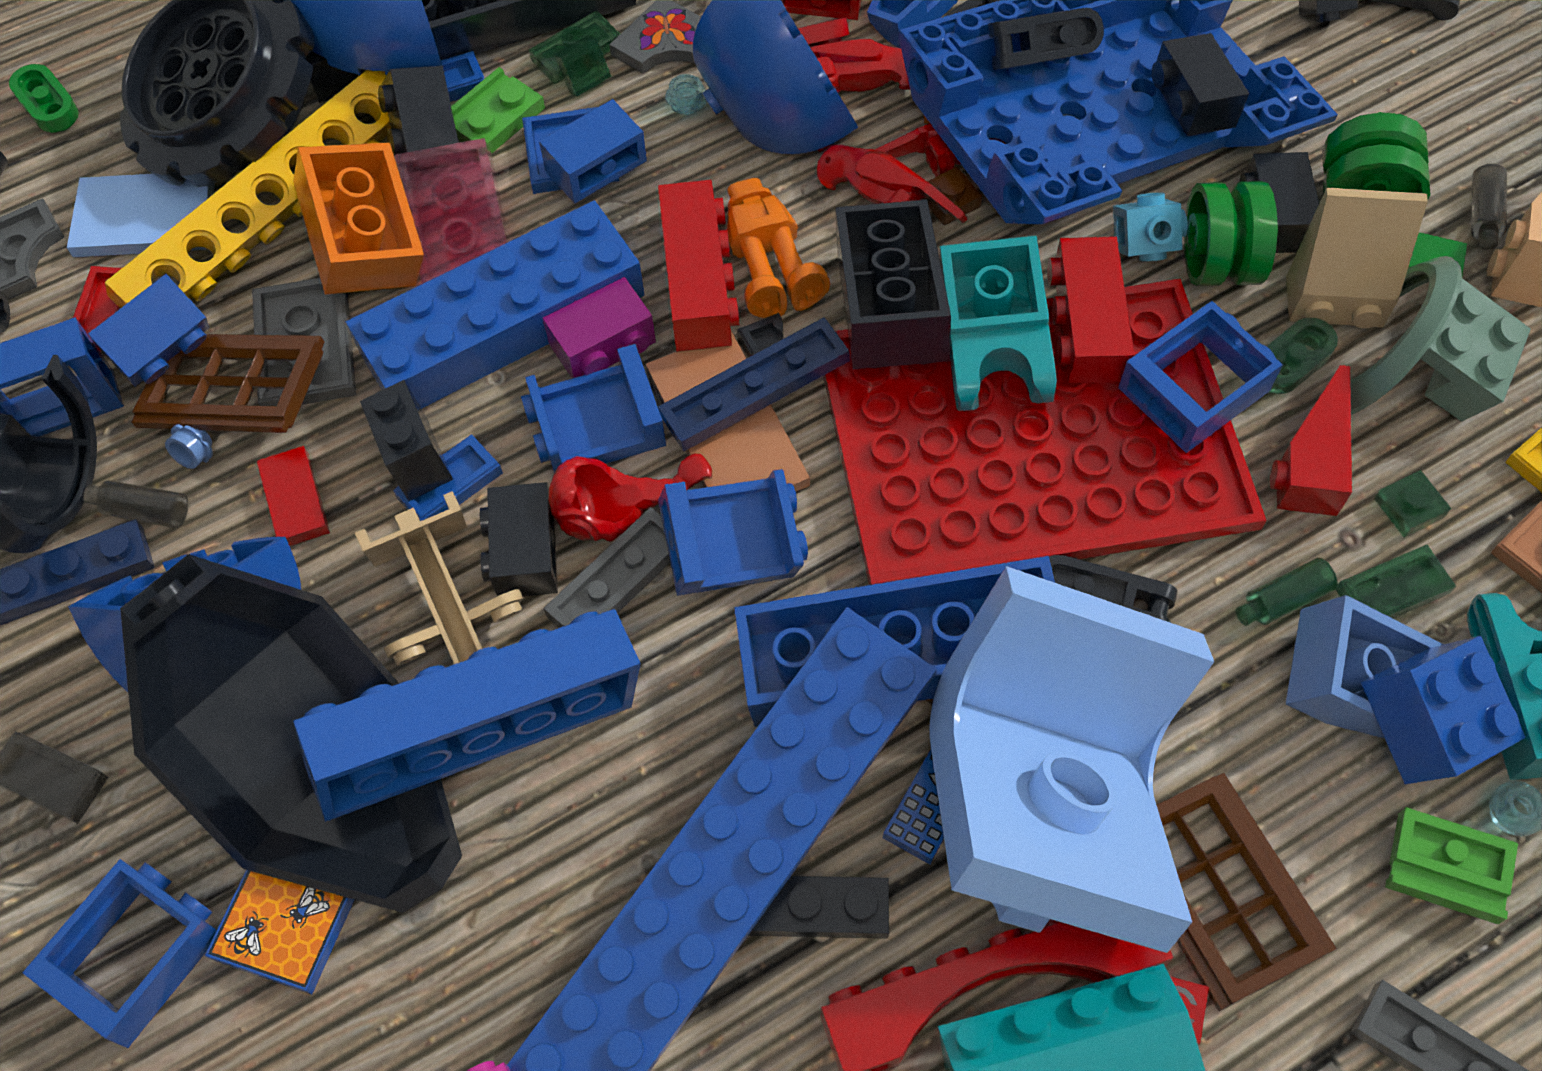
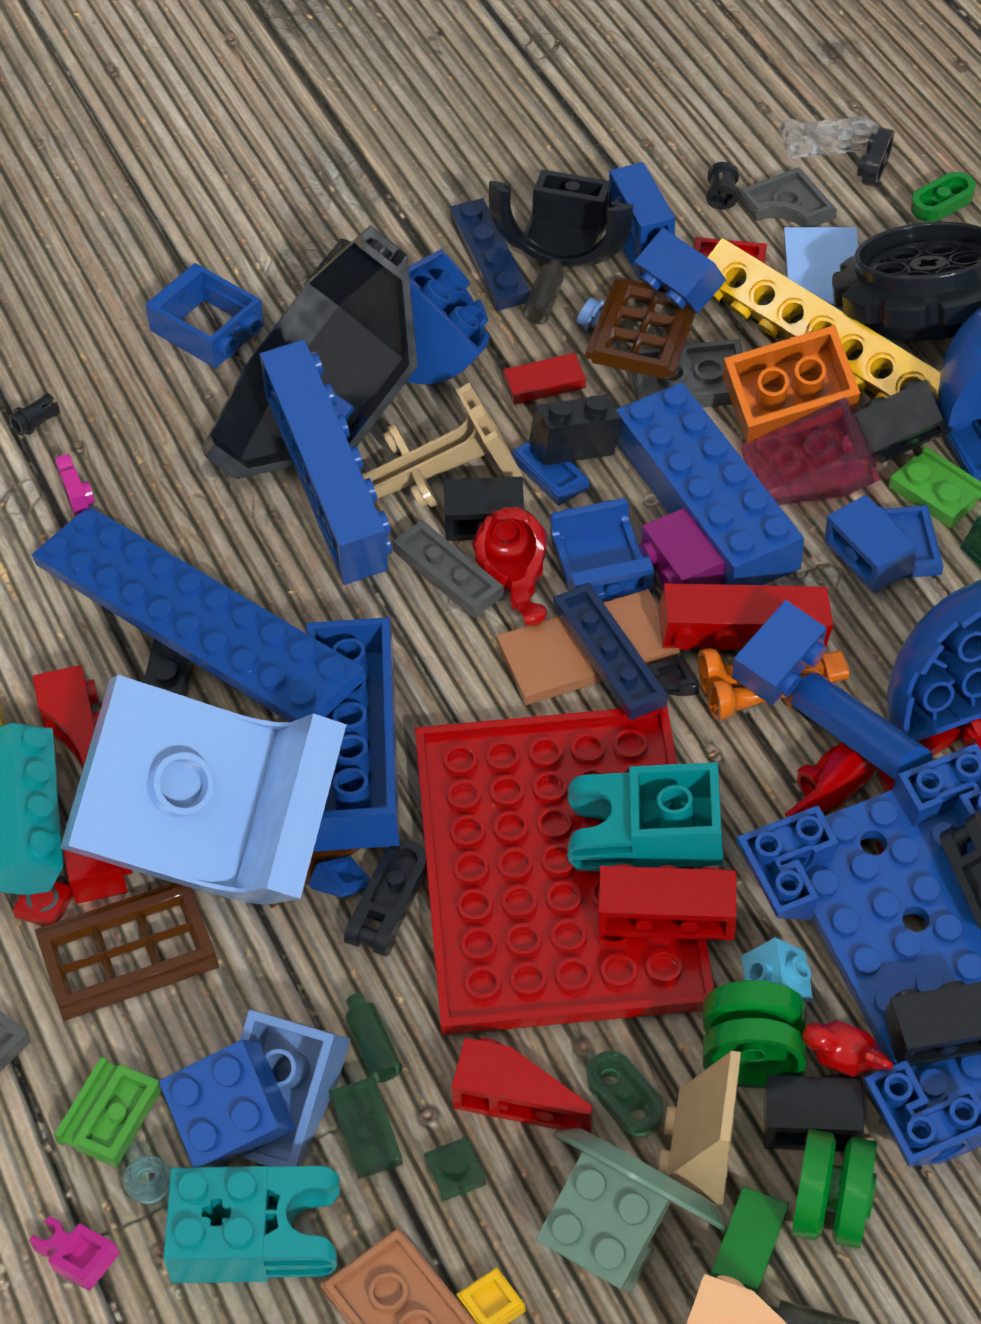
camera: 95 degrees right, 10 degrees down
(279, 930) = (202, 392): tile -> none
(732, 533) = (468, 629): blue panel -> none
(767, 211) = (779, 653): none -> blue brick
(856, 147) = (858, 726): none -> blue brick
(892, 285) = (691, 727): black brick -> none
(1169, 404) = (563, 943): blue window -> none
(1231, 156) = (845, 1048): none -> red animal

